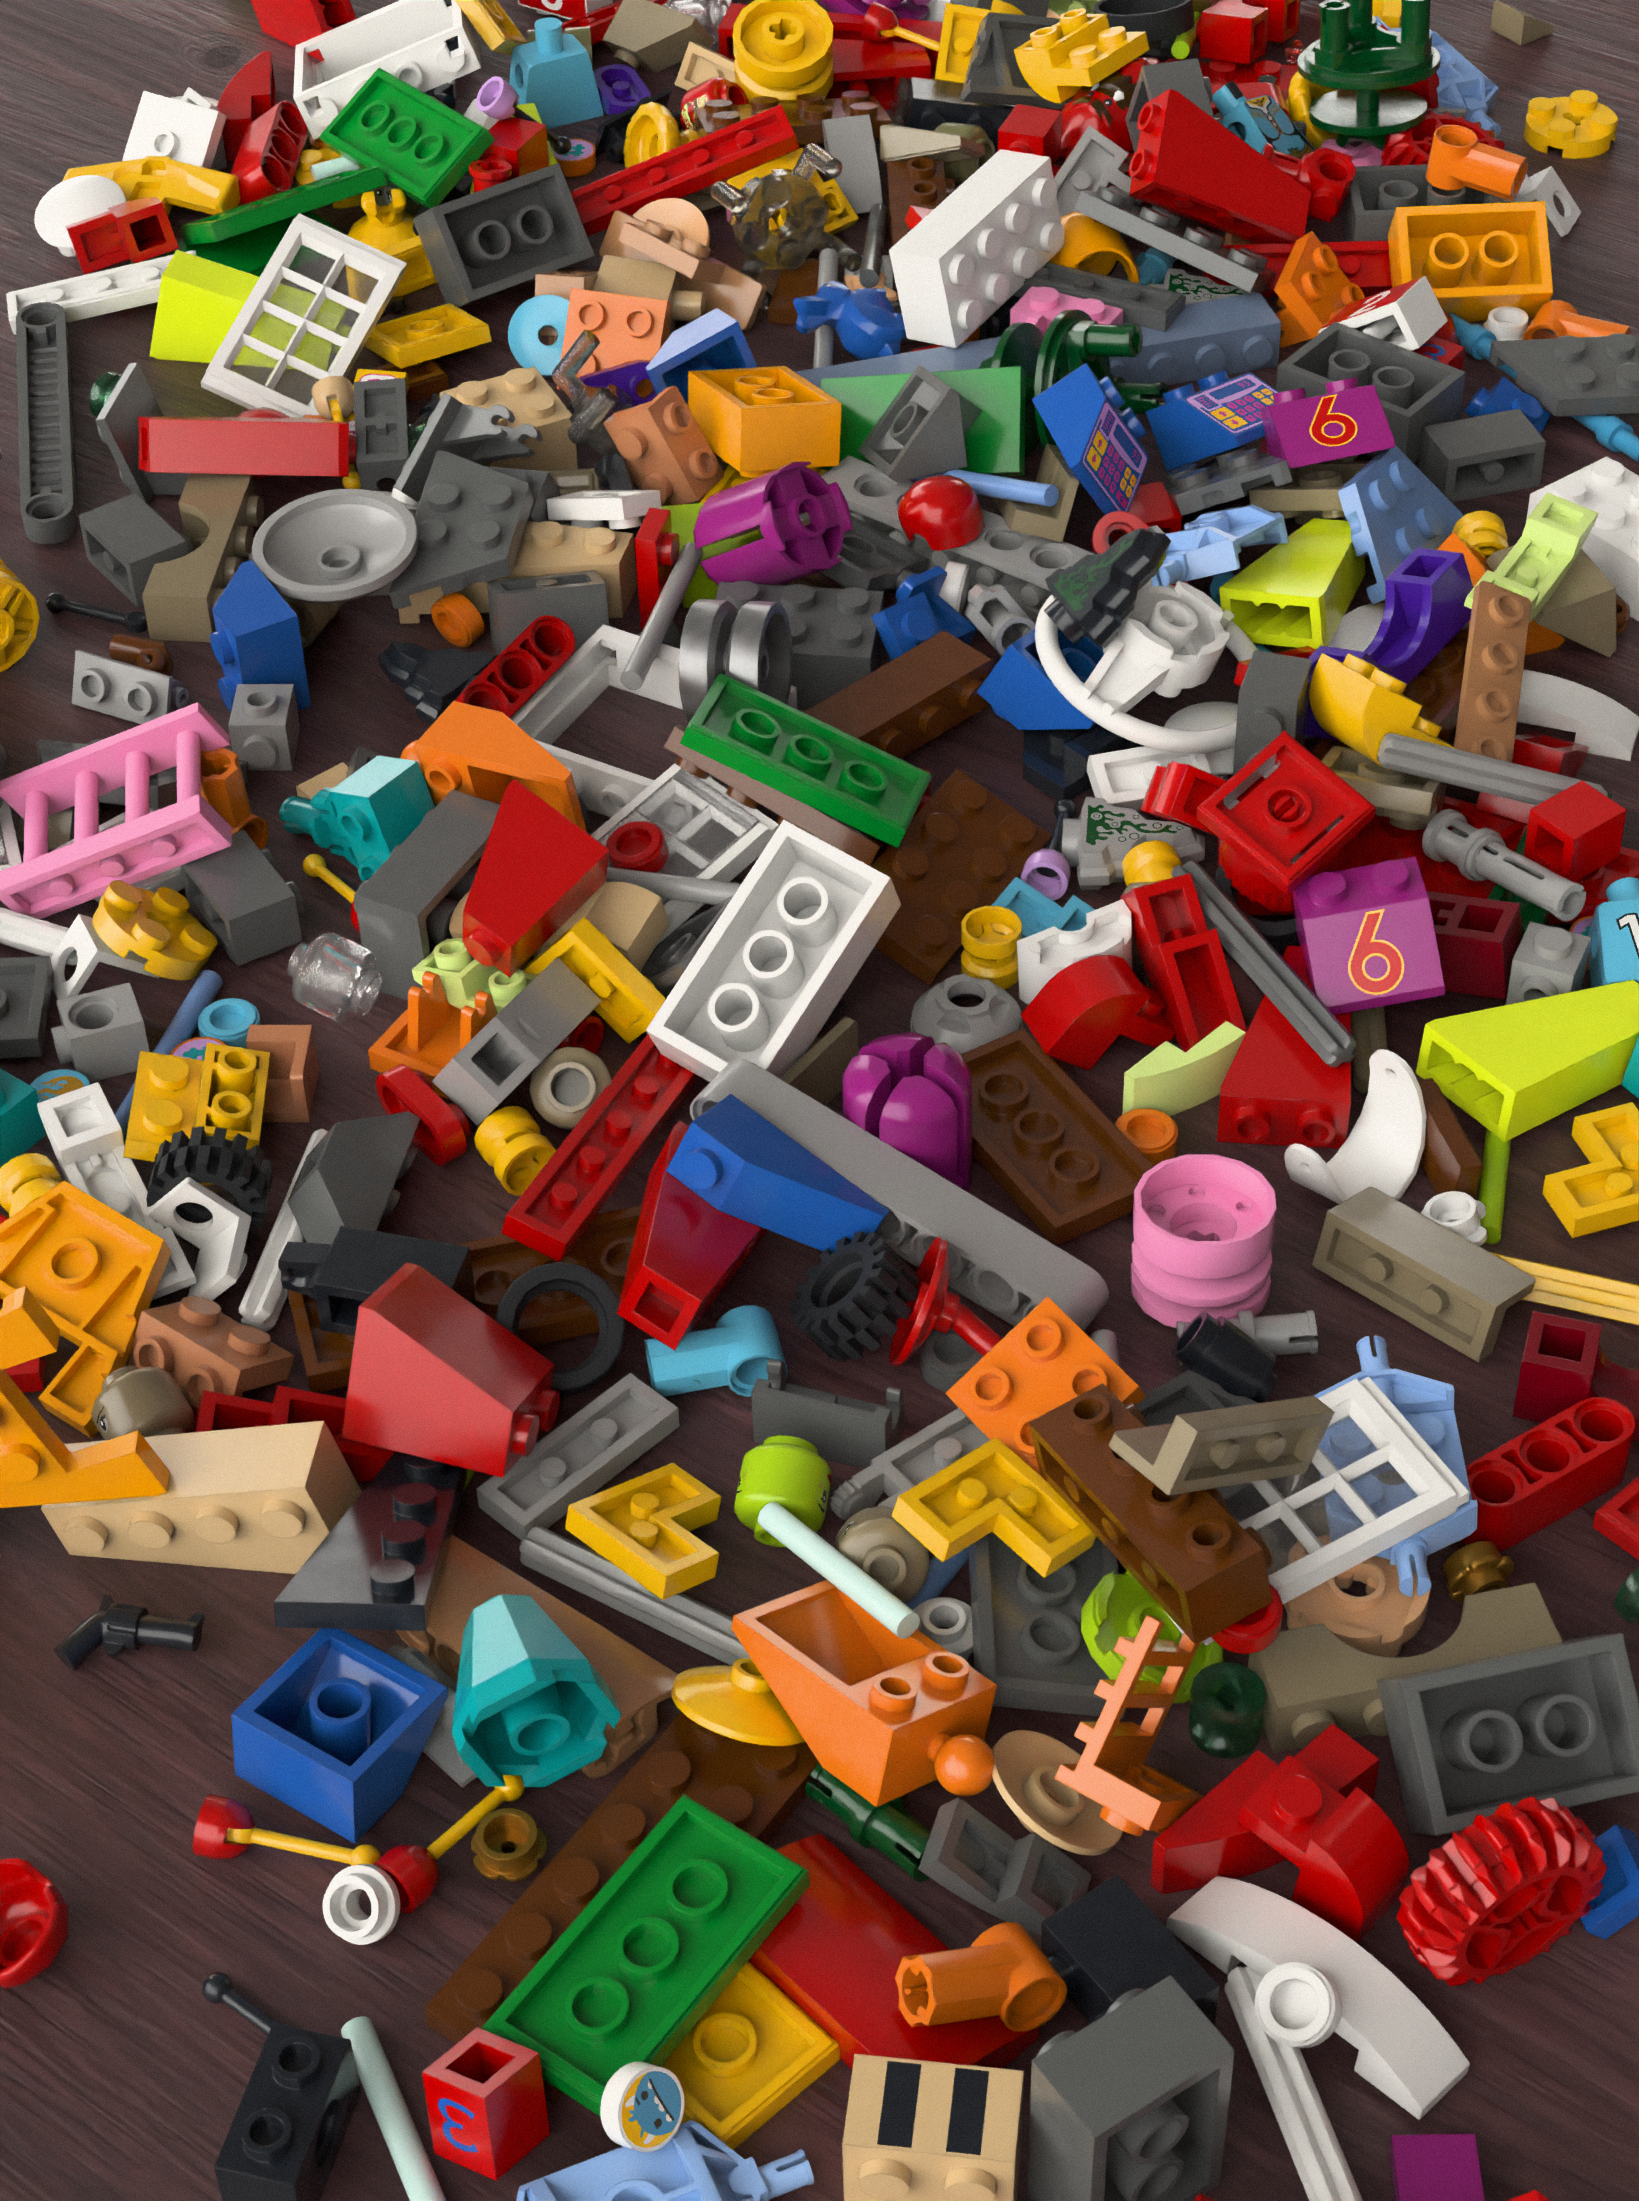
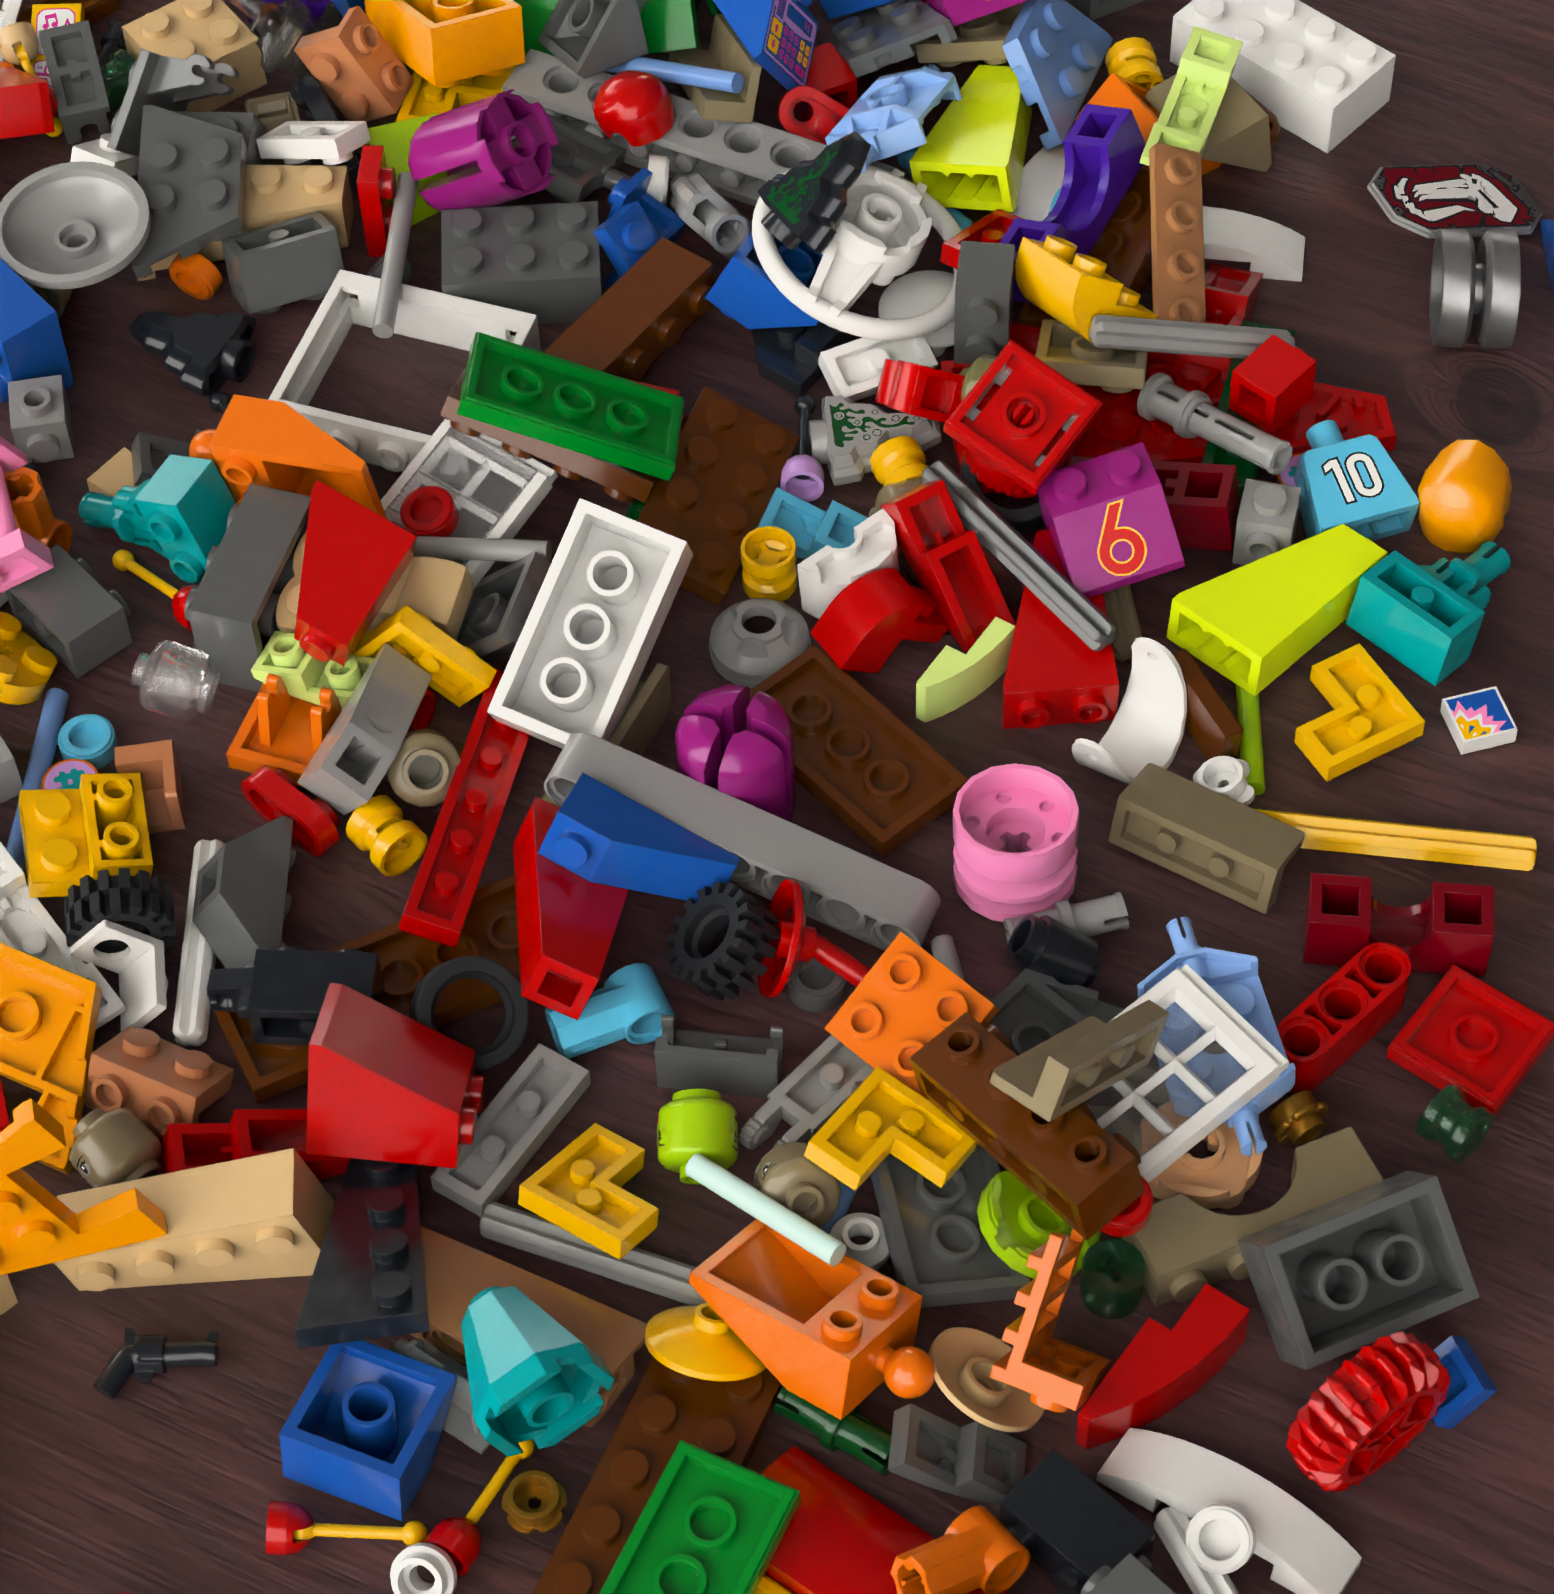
camera: 10 degrees left, 10 degrees up
(522, 666) = (279, 330): red beam -> none
(744, 645) = (481, 300): flat silver wheel -> none
(1151, 1133) = (945, 732): orange tile -> none
(1344, 1846) = (1231, 1393): red brick -> none

